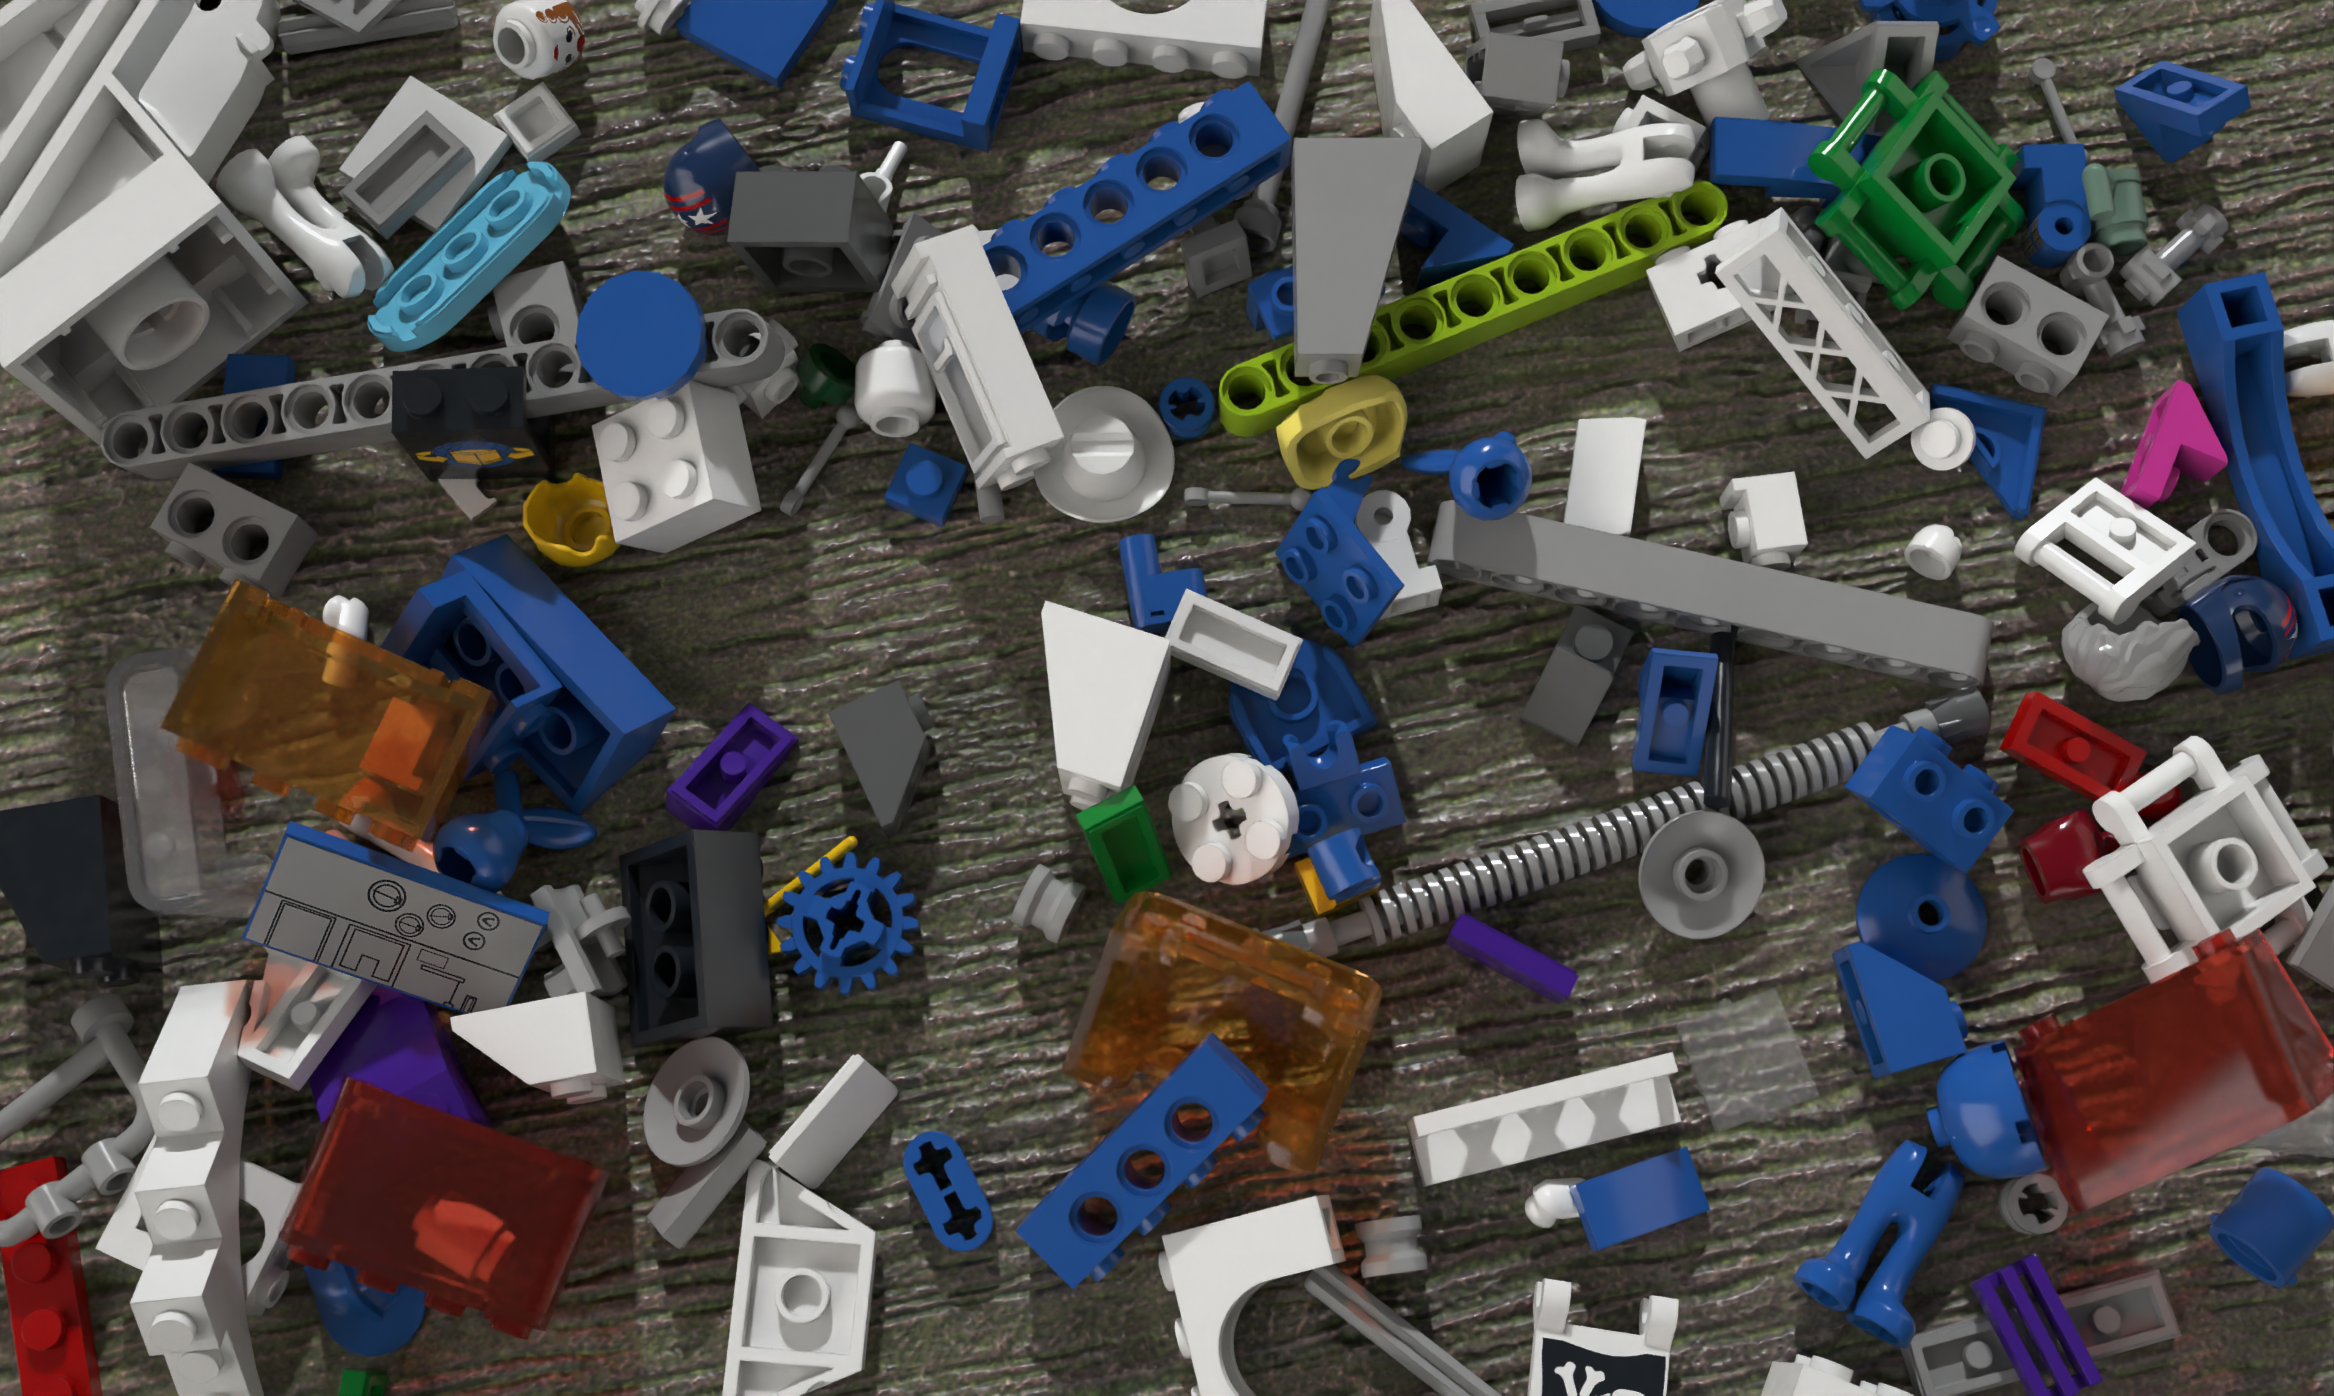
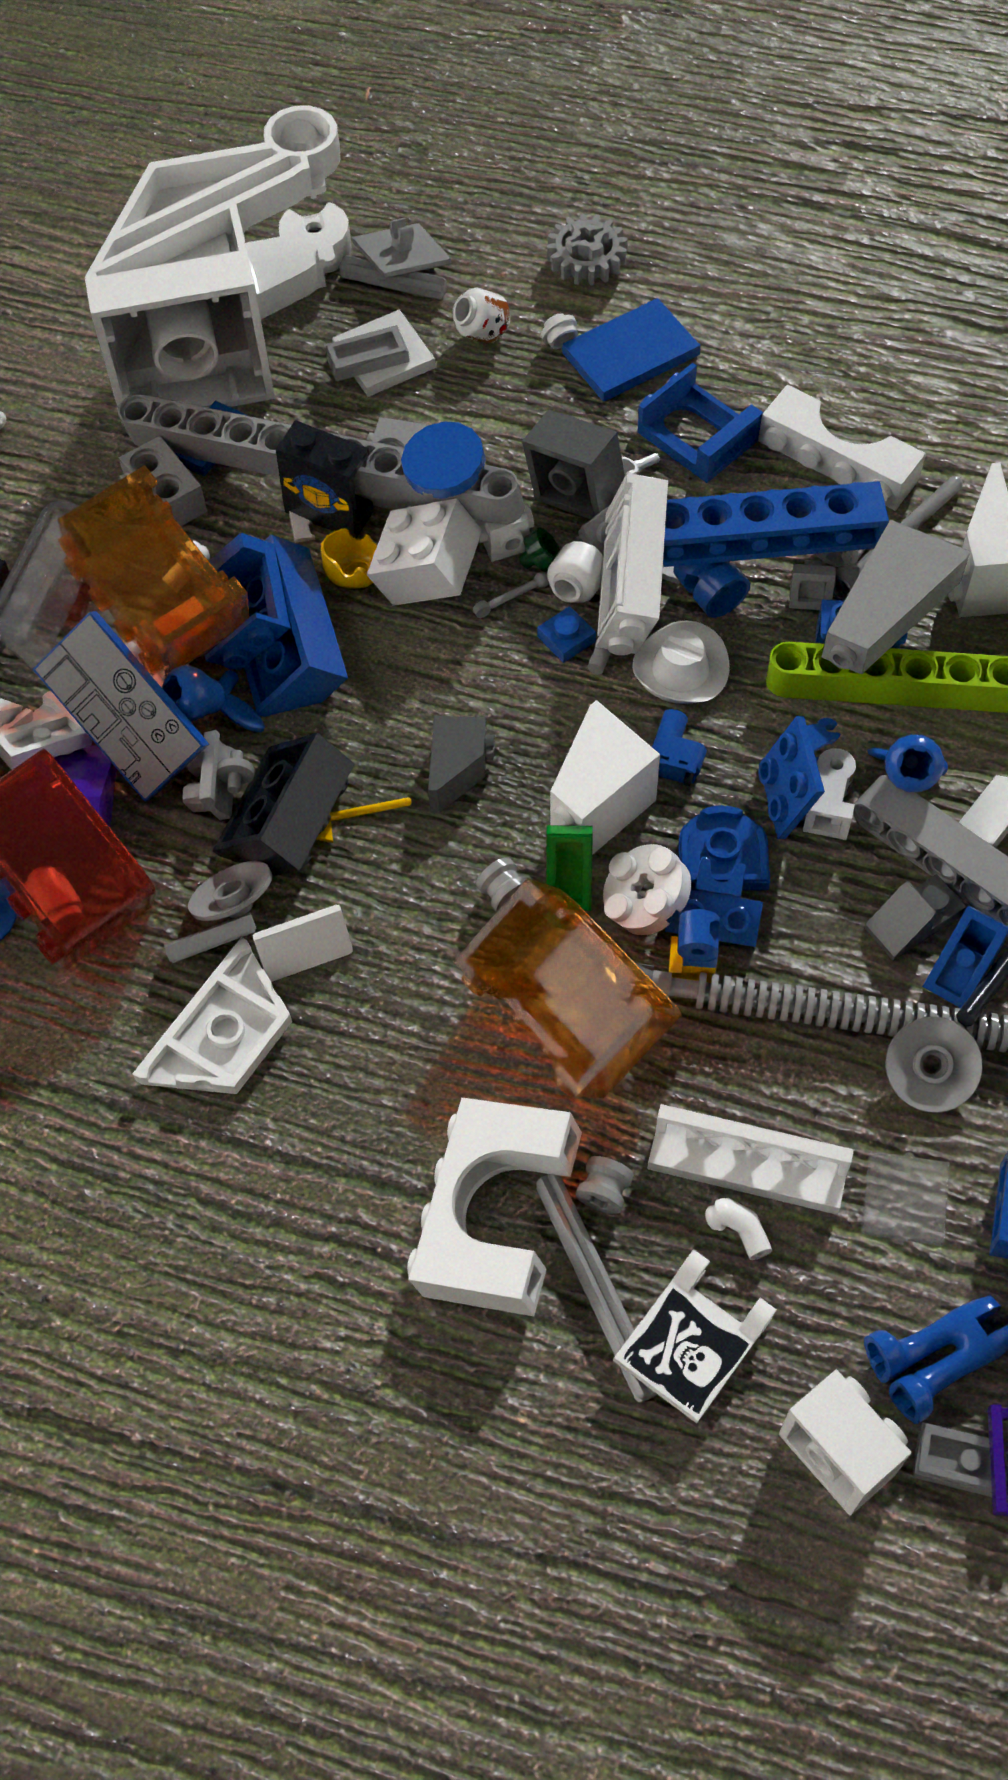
camera: 30 degrees right, 15 degrees down
(287, 203) = (294, 341): white piece -> none
(468, 256) = (377, 403): medium azure tile -> none
(537, 124) = (454, 363): white tile -> none
(552, 1044) = (169, 812): white slope -> none
(703, 176) = (524, 415): dark blue helmet -> none
(730, 771) = (363, 729): dark purple slope -> none
(838, 952) = (376, 846): blue gear -> none
(934, 1198) = (338, 1018): blue beam -> none
(1059, 1223) = (405, 1058): blue brick -> none
(1181, 391) = (750, 651): blue bush -> none
(1201, 496) = (729, 712): light grey hinge -> none
(1232, 644) = (700, 793): white tile -> none
(1348, 421) = (851, 702): light yellow piece -> none
(1457, 238) = (963, 629): blue slope -> none
(1511, 958) = (778, 1054): dark purple tile -> none
(1639, 1198) = (786, 1237): blue slope -> none

